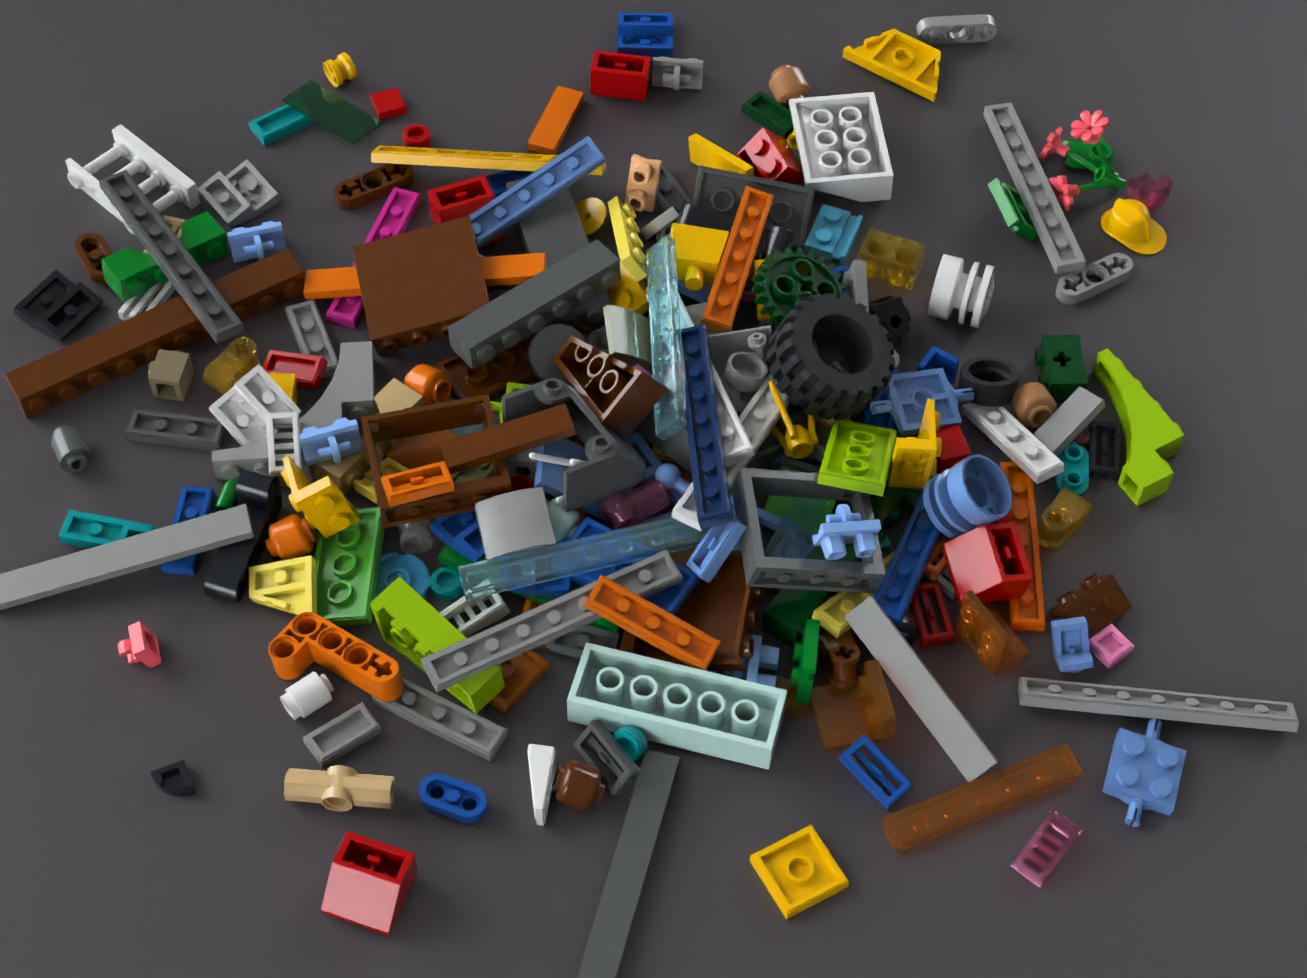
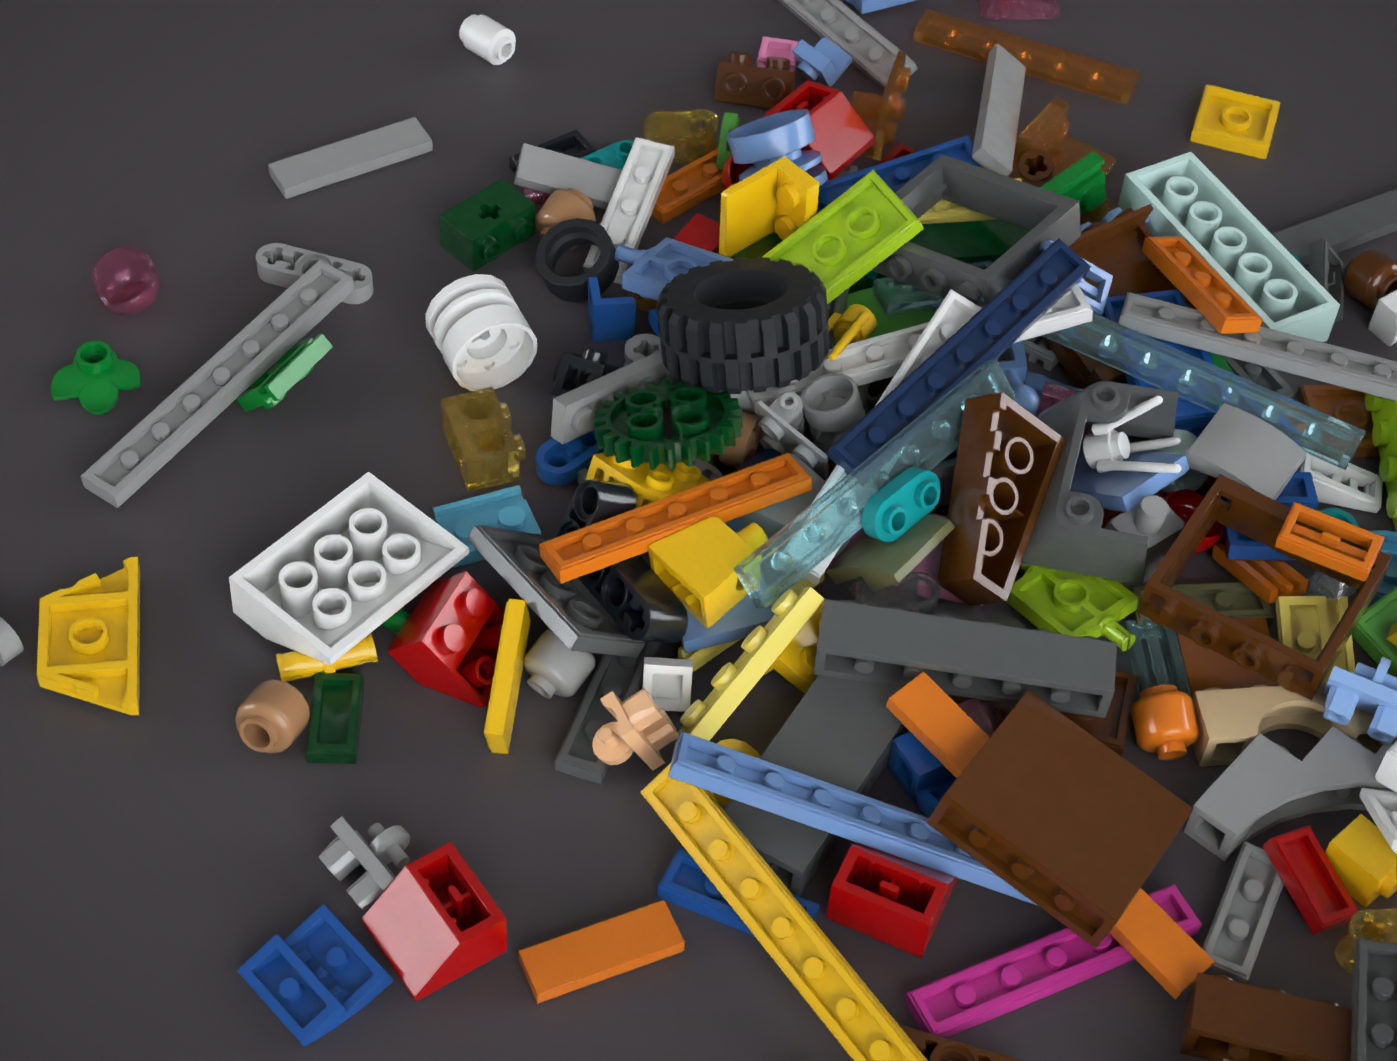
camera: 135 degrees left, 5 degrees down
(507, 438) = (1186, 503): reddish brown tile -> none
(643, 337) = (901, 504): none -> teal plate
(845, 529) = (955, 173): light blue hips -> none
(866, 781) = (1095, 131): blue tile -> none
(1029, 524) = (730, 122): none -> bright green tile
(1090, 131) = (143, 286): coral plant -> none
(1132, 226) = (192, 287): yellow piece -> none
(1146, 428) = (500, 129): lime arch -> none
(1189, 356) = (350, 157): none -> light grey tile
(1254, 487) = (487, 39): none -> white brick

